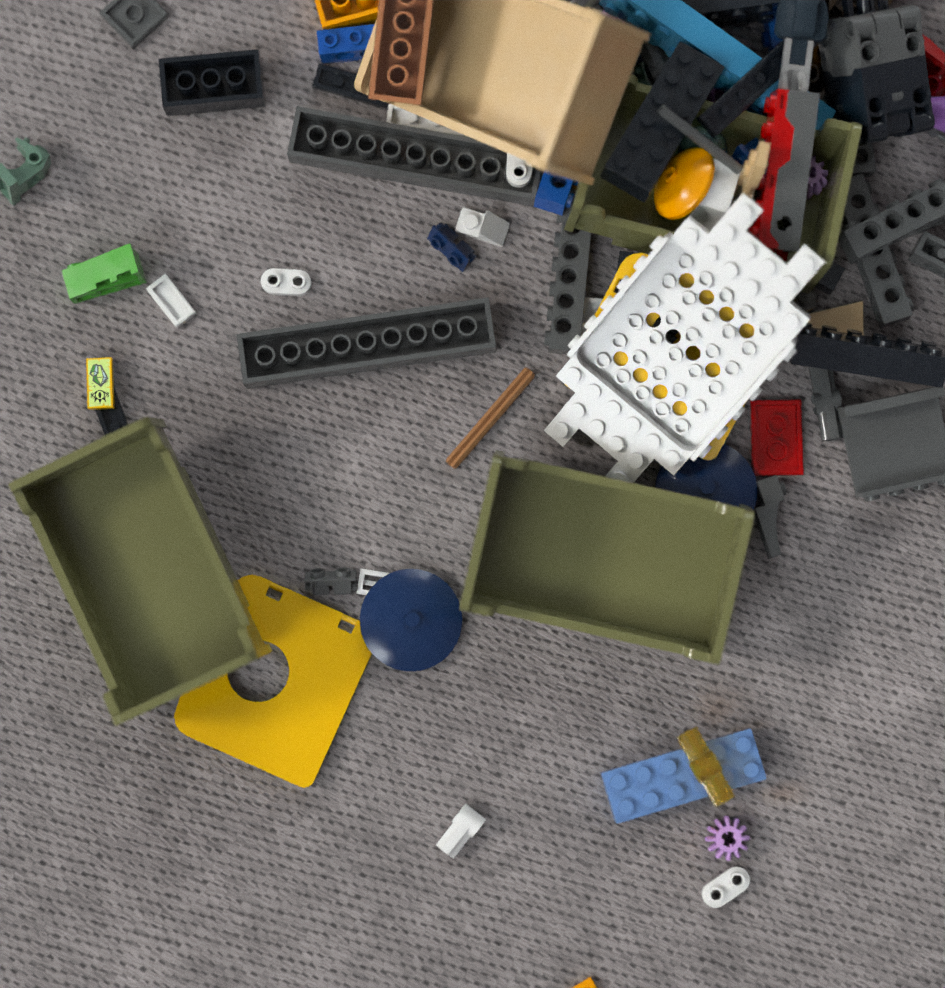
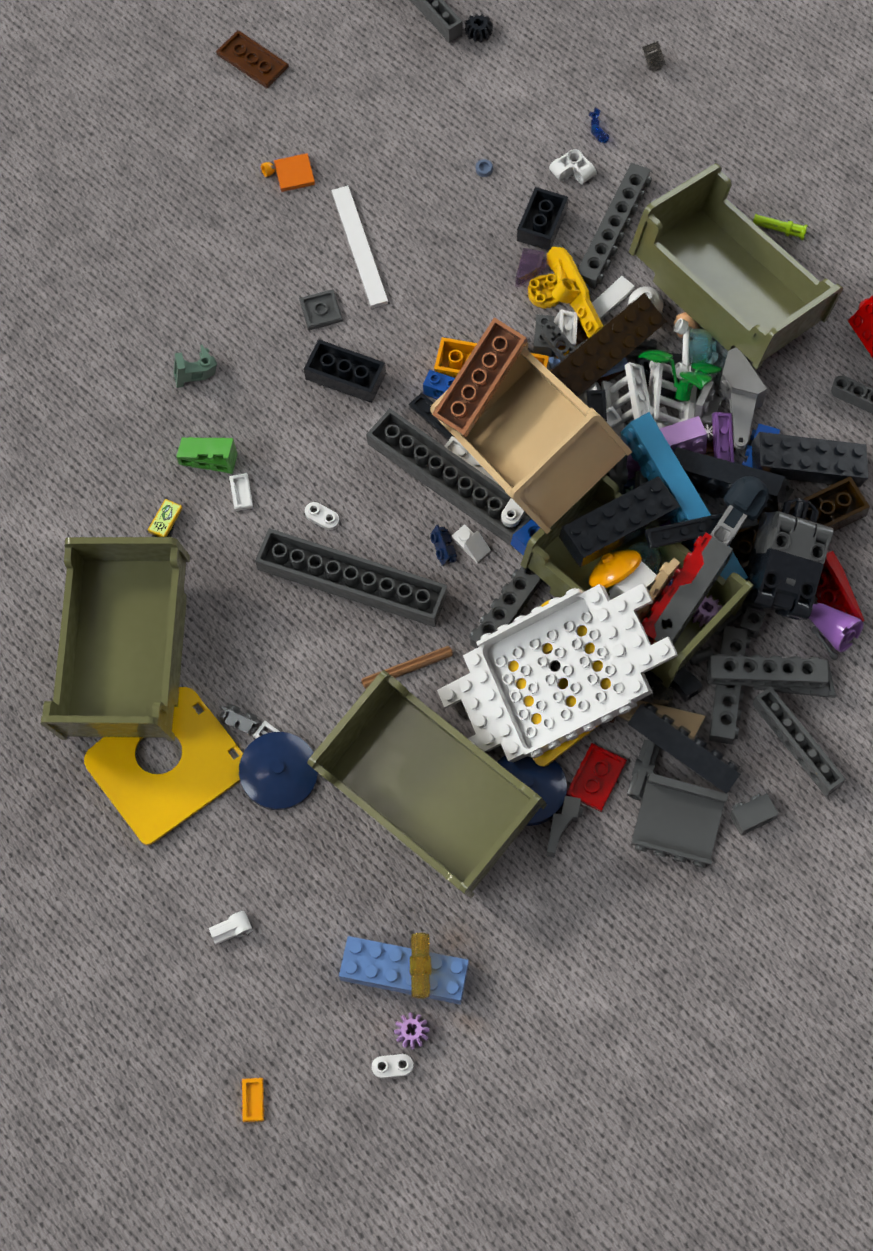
camera: 30 degrees right, 15 degrees down
(700, 139) = (636, 541): dark grey bar -> none

